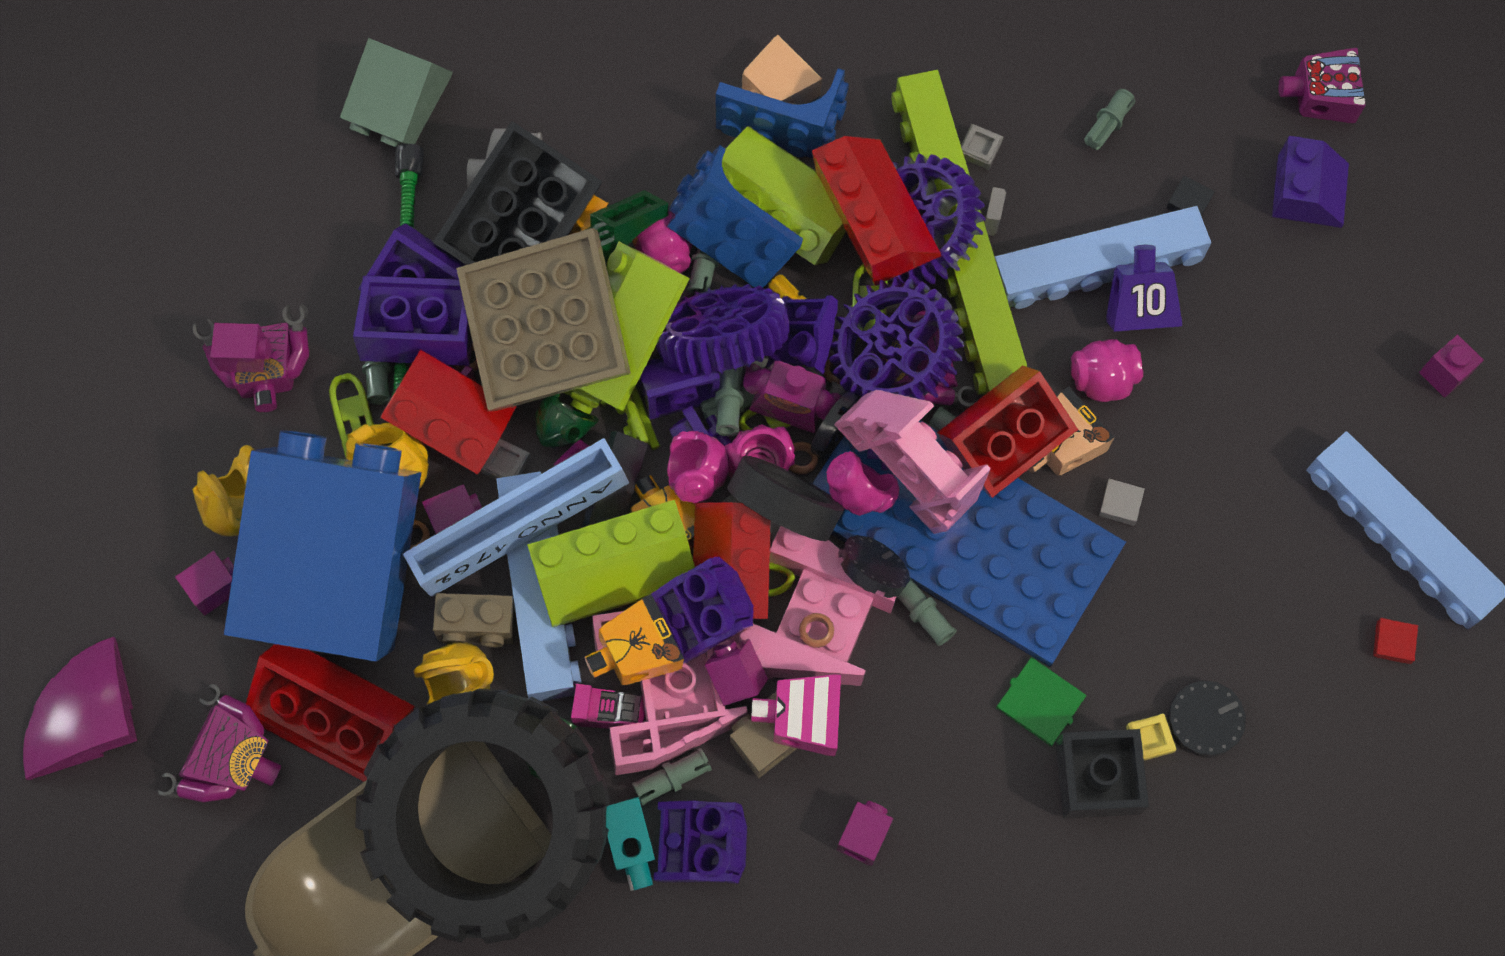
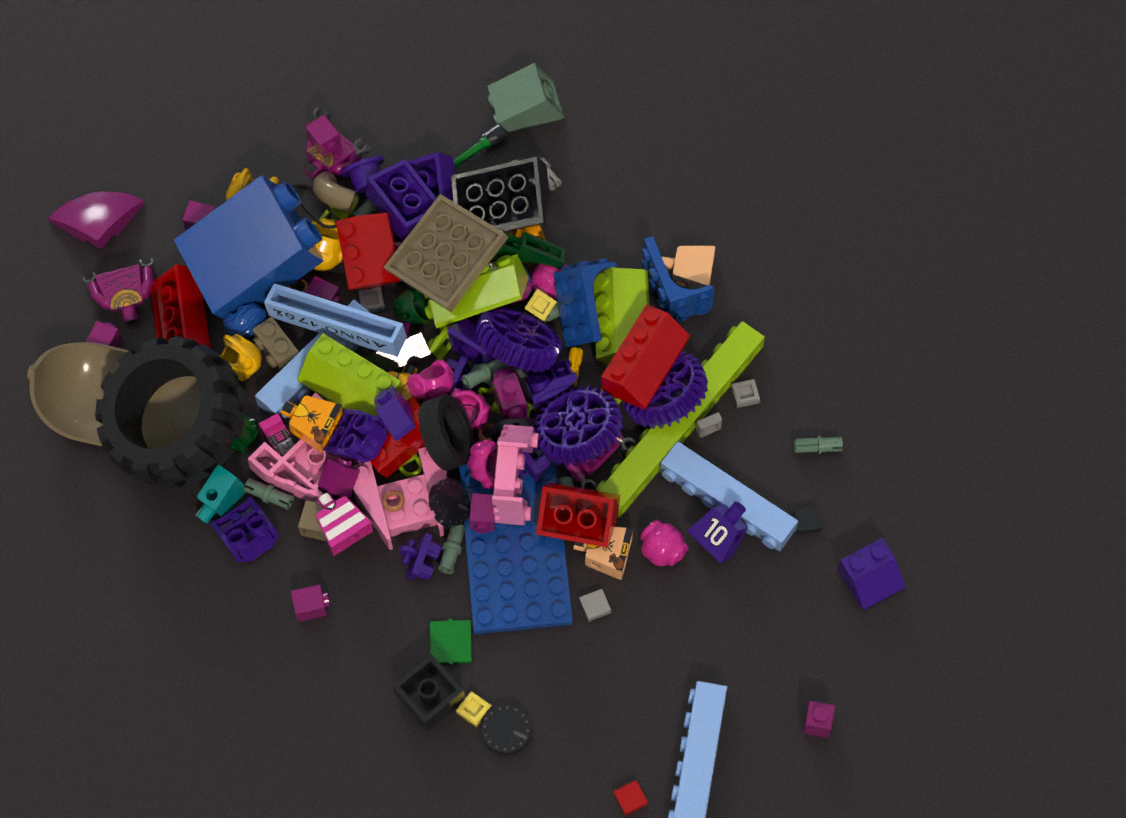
camera: 55 degrees right, 5 degrees down
(271, 825) = (105, 334): none -> magenta brick
(324, 397) = (331, 193): none -> dark tan cylinder
(328, 419) = (311, 214): none -> black piece
(333, 342) = (361, 171): none -> dark purple piece
(412, 632) = (244, 320): none -> blue hair
(696, 268) = (540, 305): none -> light yellow tile
(720, 537) = (394, 412): none -> dark purple slope
(904, 657) = (424, 548): none -> dark purple hips
(917, 537) = (482, 513): none -> magenta brick
(1327, 86) = (941, 541): magenta torso -> none

